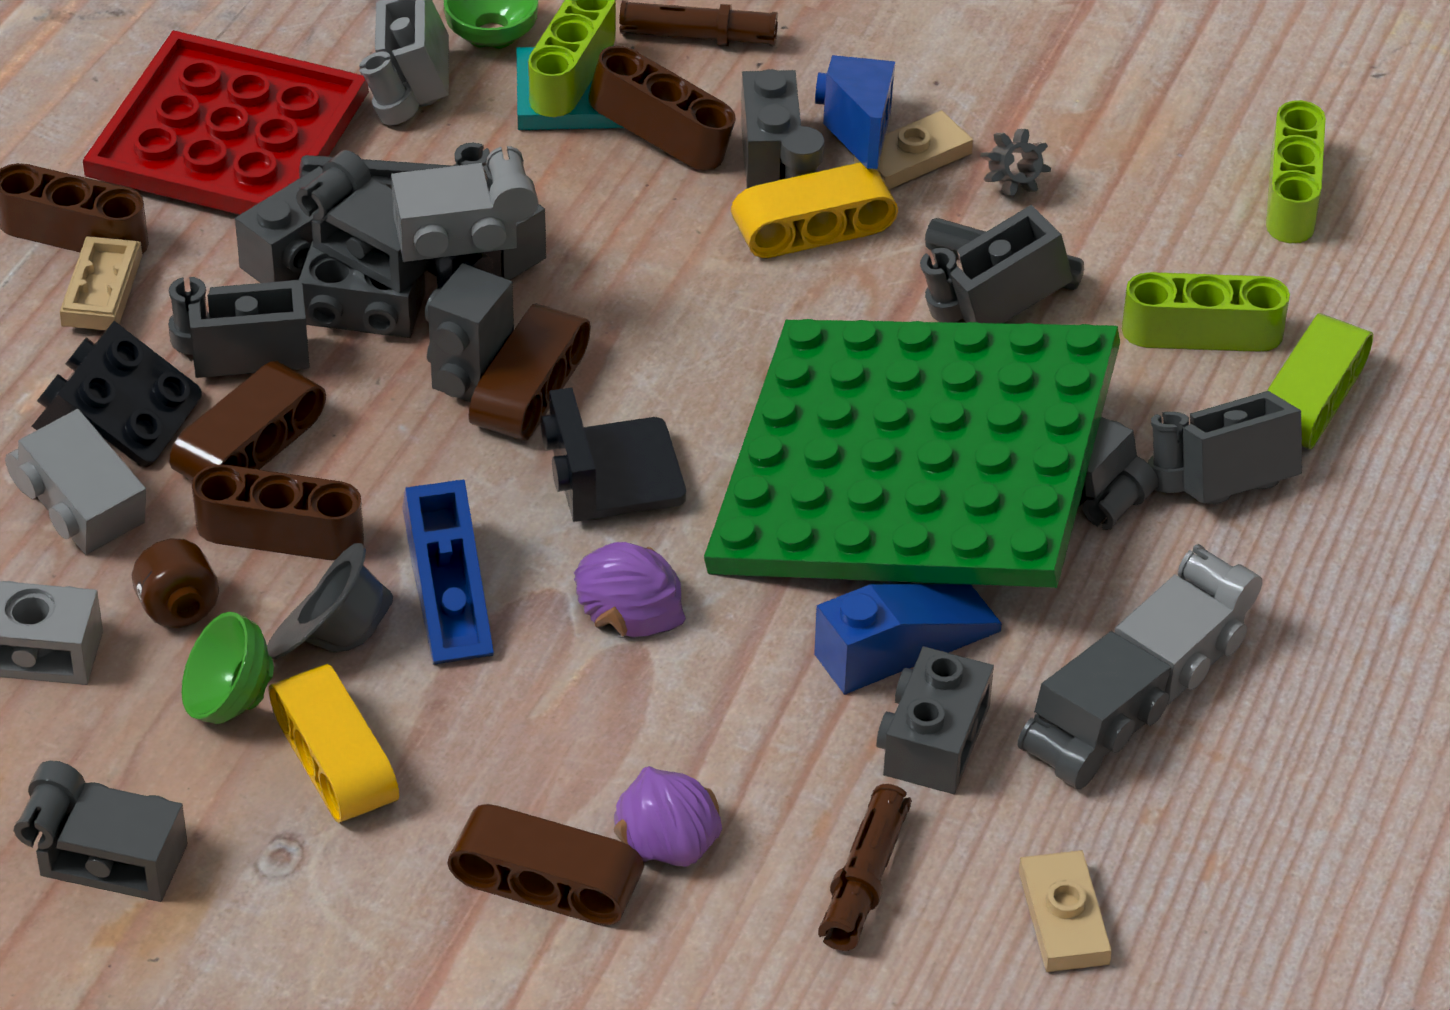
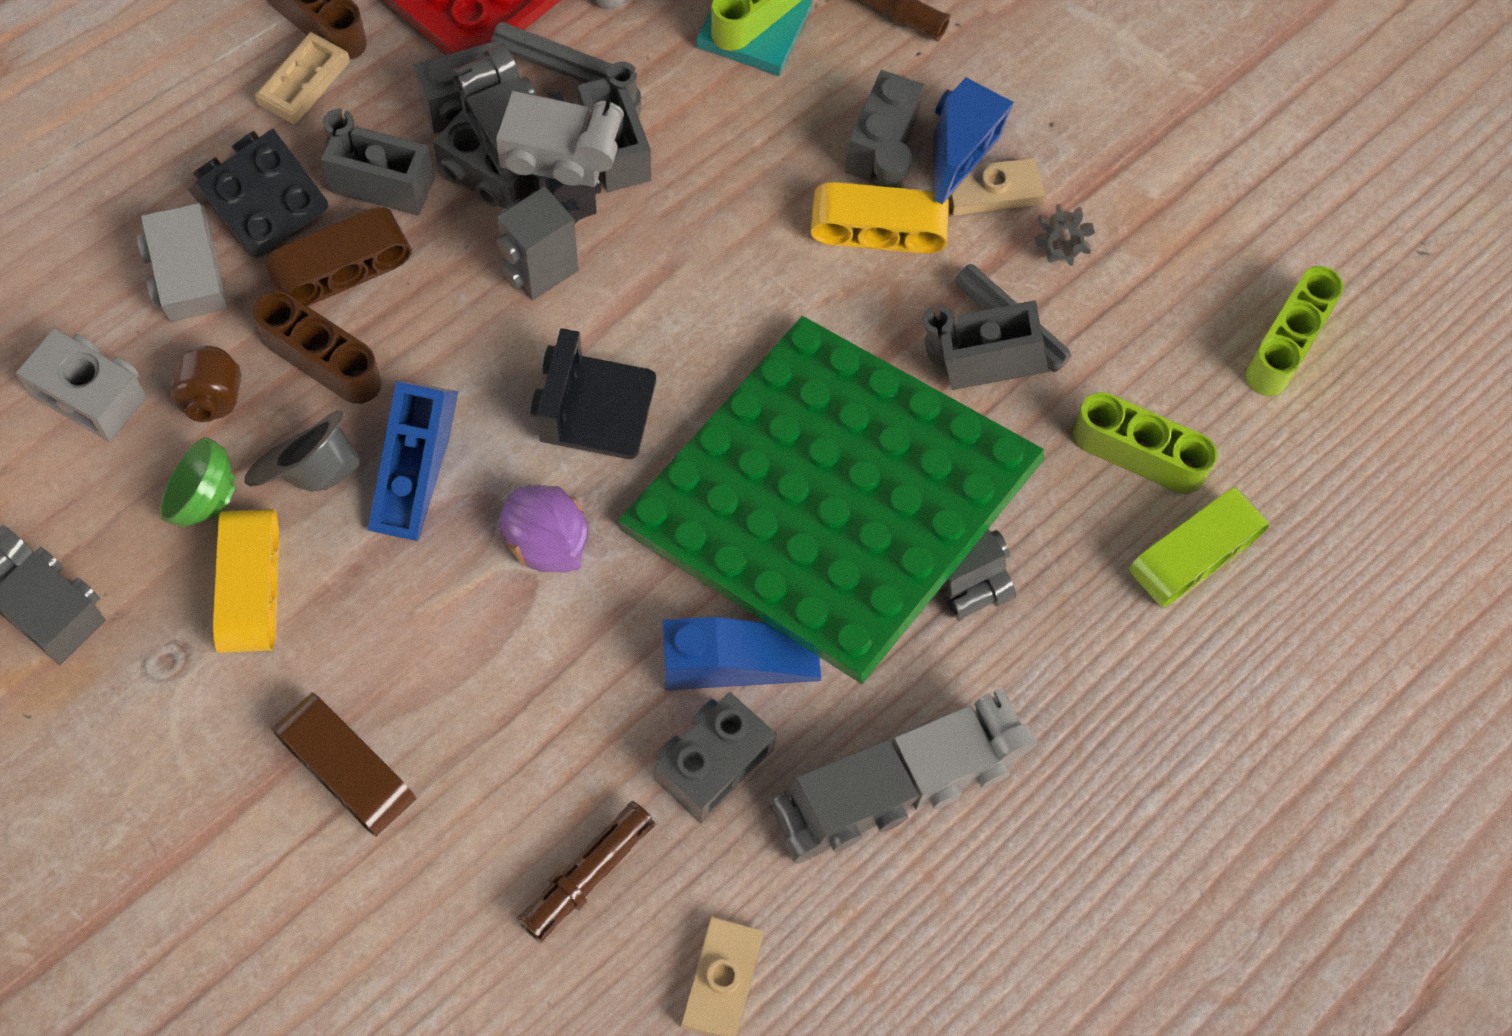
camera: 20 degrees right, 20 degrees up
(531, 363) = (576, 288): reddish brown beam -> none
(661, 107) = (810, 96): reddish brown beam -> none
(667, 817) = (458, 760): medium lavender hair -> none
(1227, 448) = (1087, 593): dark grey hinge -> none

